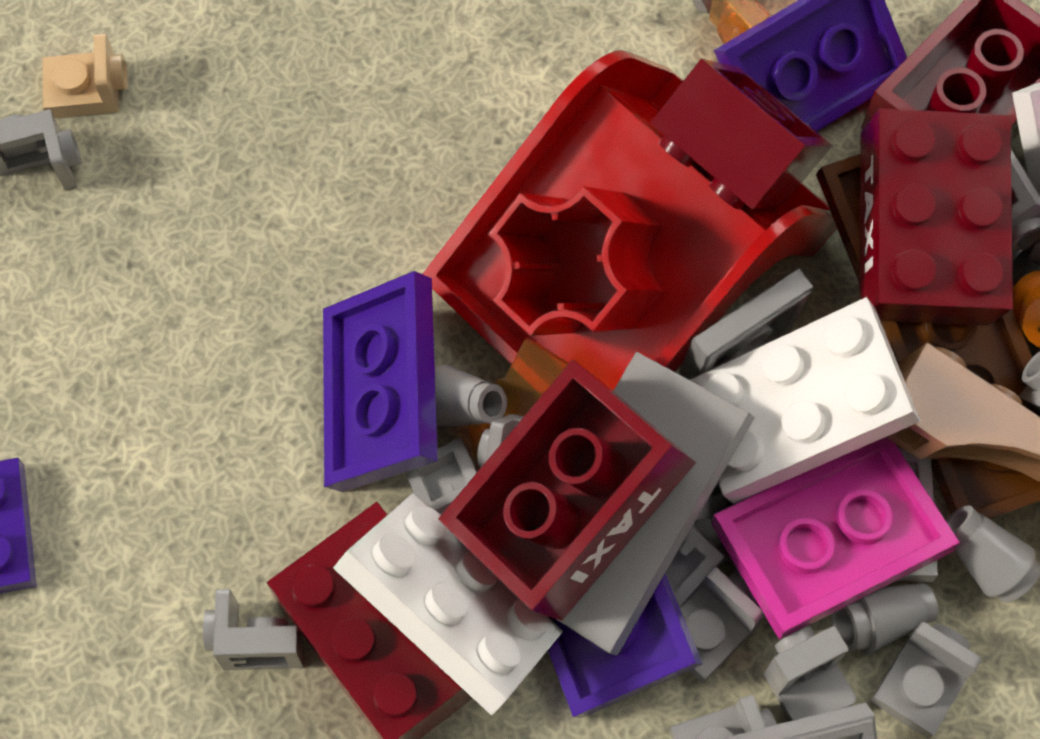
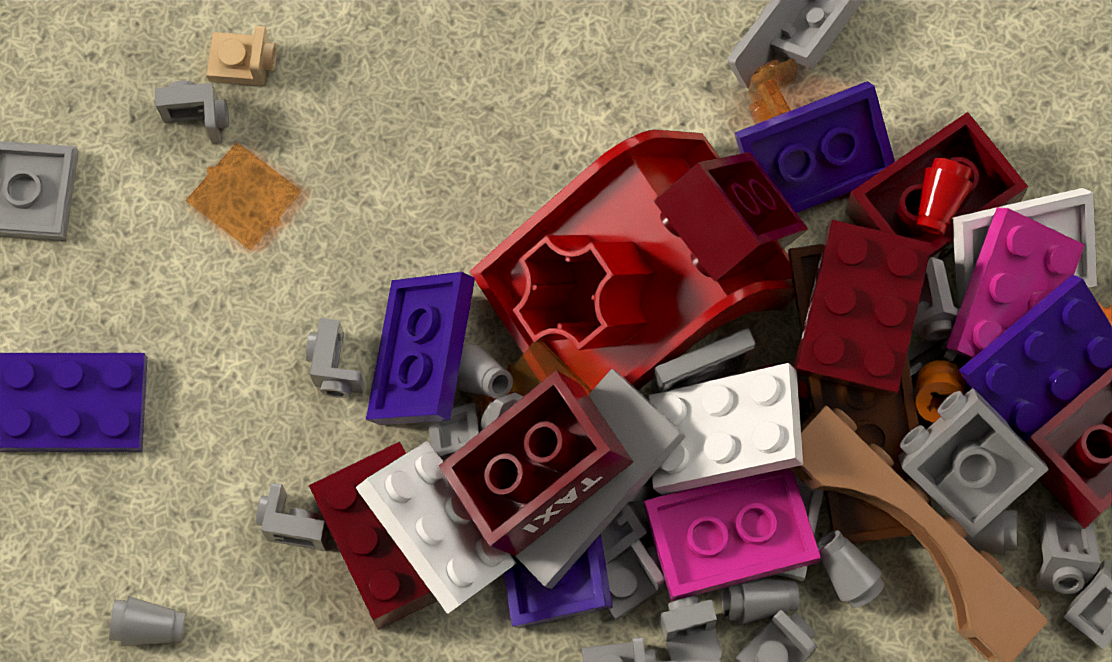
camera: 15 degrees right, 5 degrees up
(115, 244) = (243, 196): none -> clear orange piece
(254, 413) = (324, 352): none -> light grey bracket
(991, 66) = (942, 194): none -> red cone

